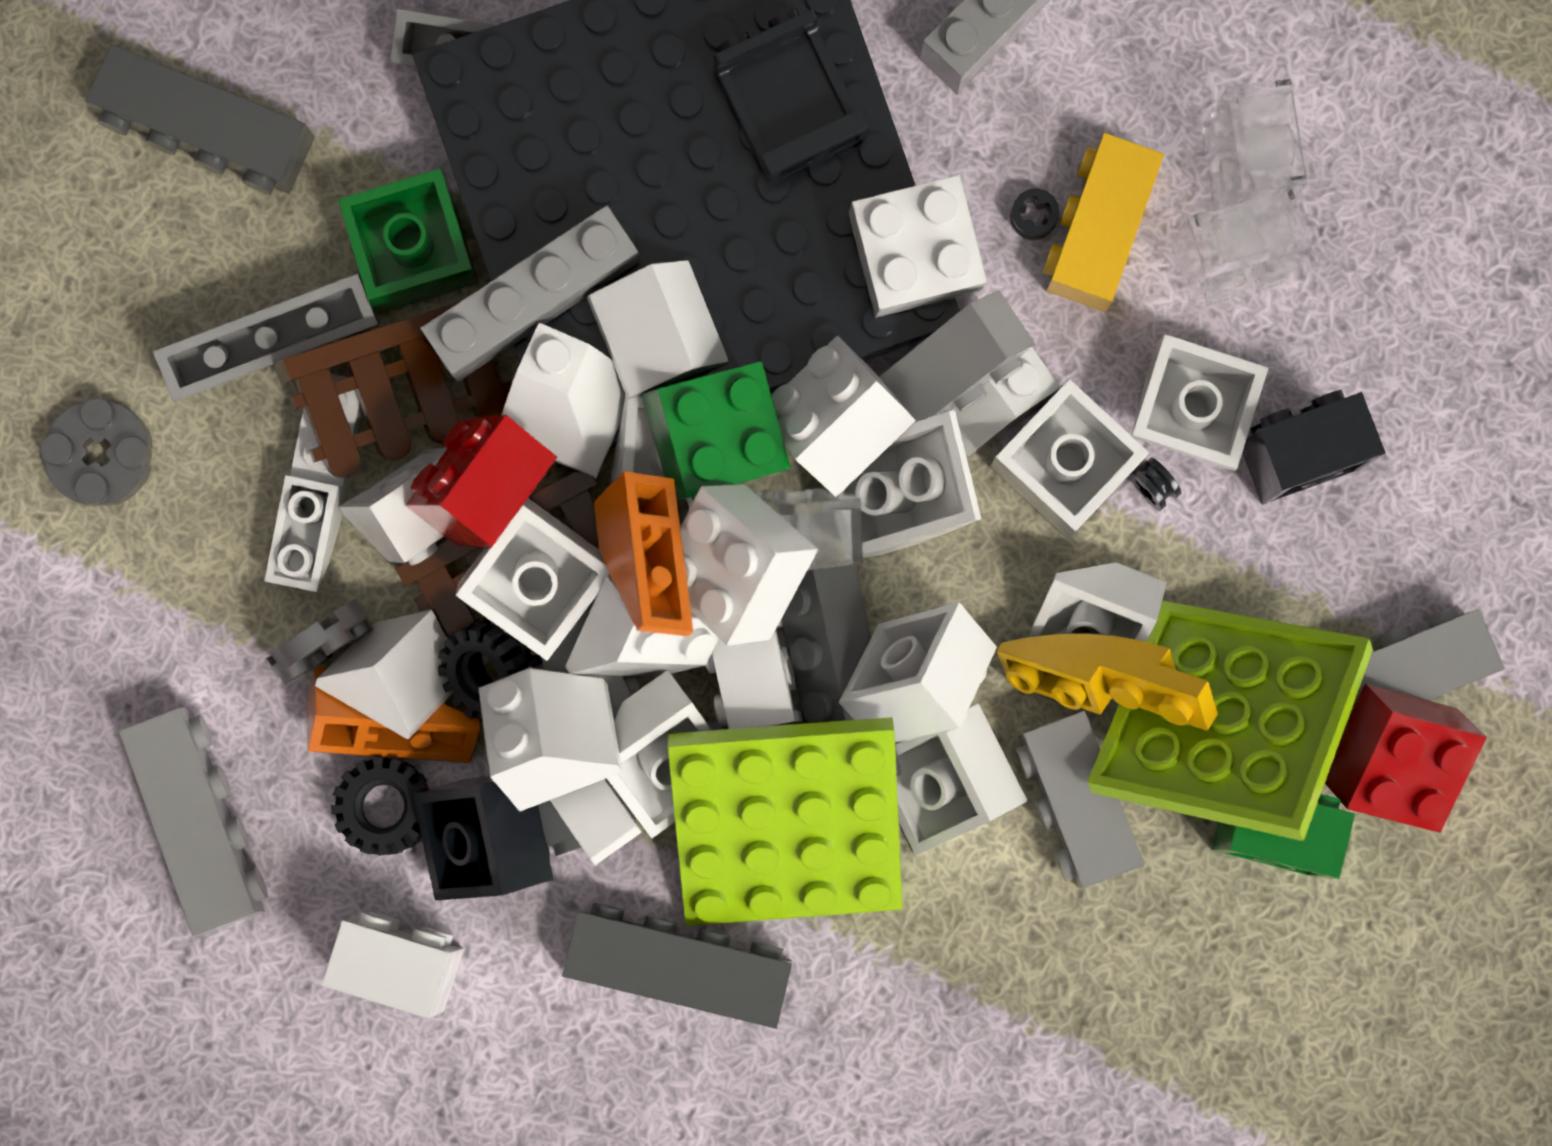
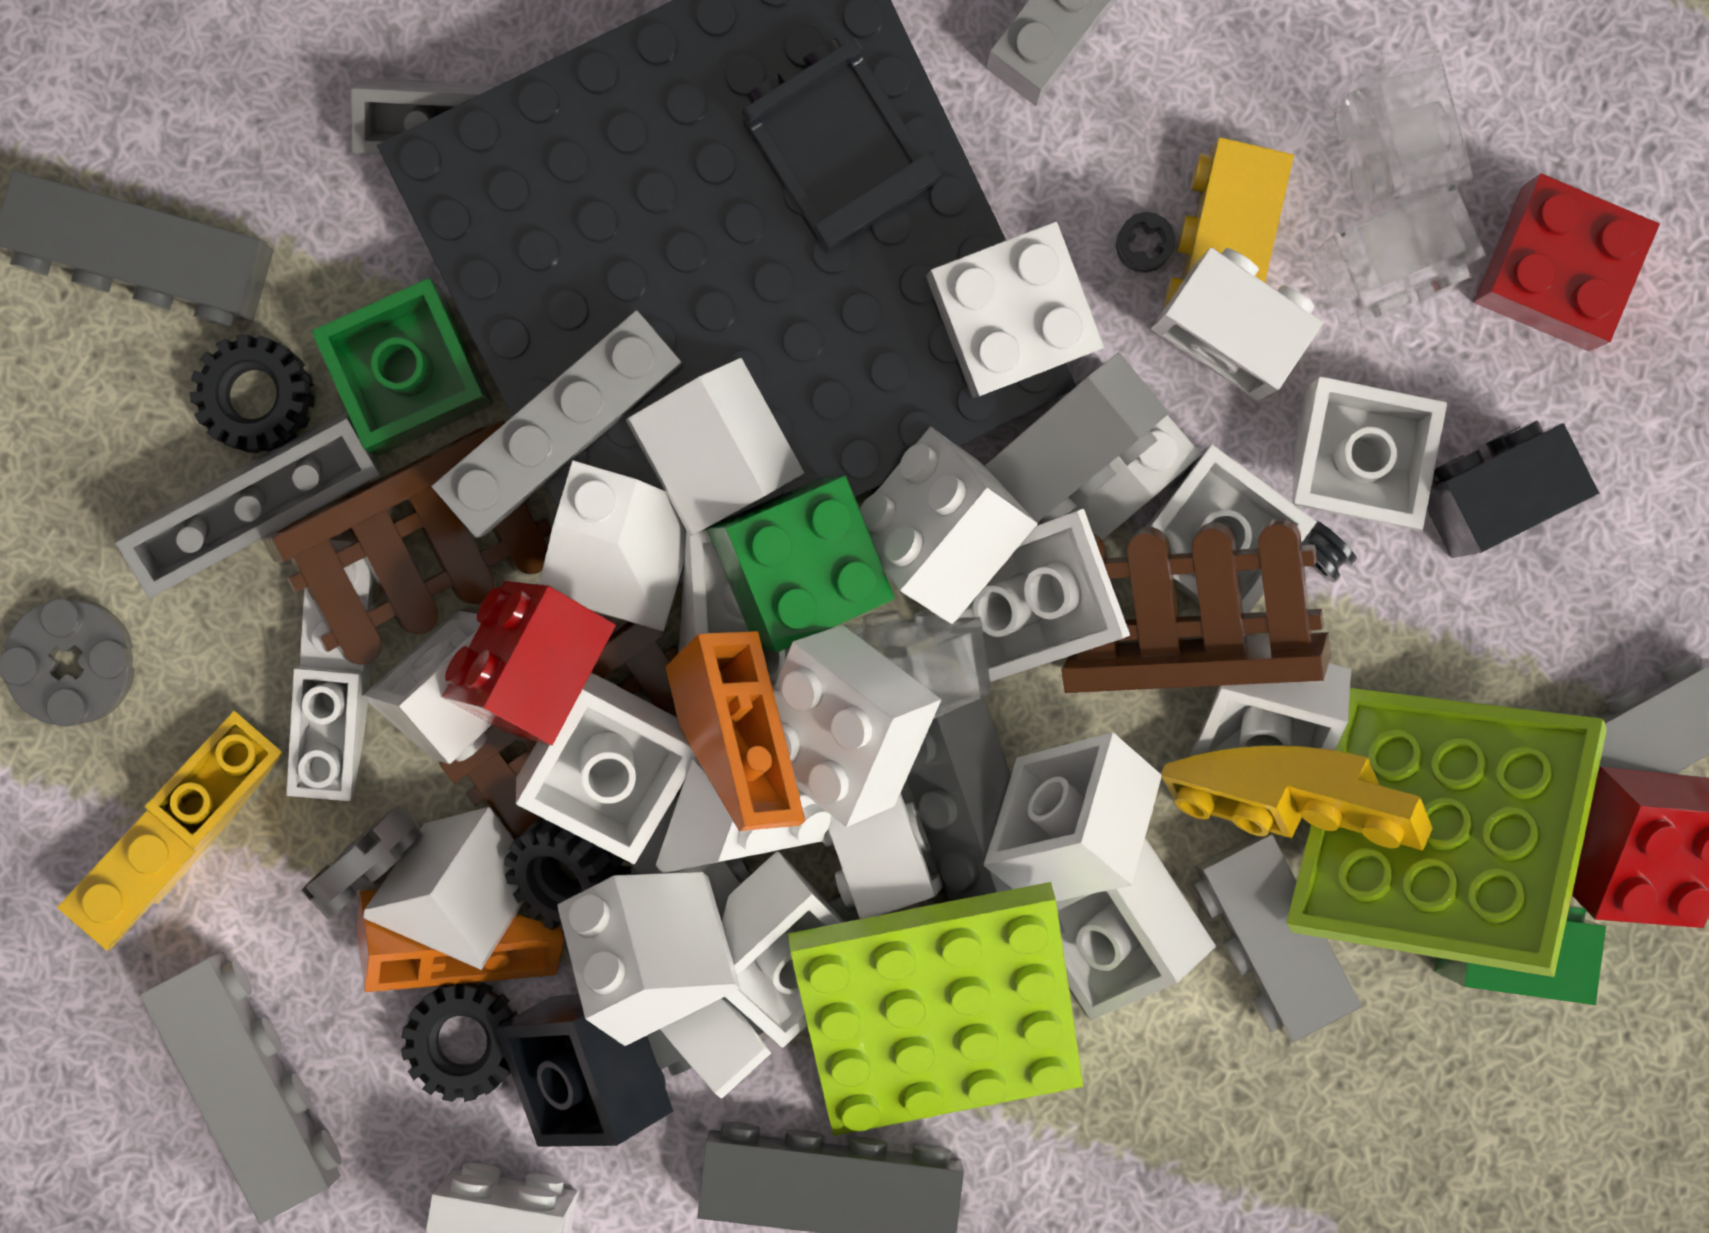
camera: 10 degrees left, 5 degrees up
(166, 601) = (172, 831): none -> yellow slope
(264, 224) = (225, 367): none -> black tyre
(1062, 551) = (1226, 652): none -> reddish brown fence
(1099, 278) = (1238, 323): none -> white brick
(1381, 270) = (1566, 263): none -> red brick

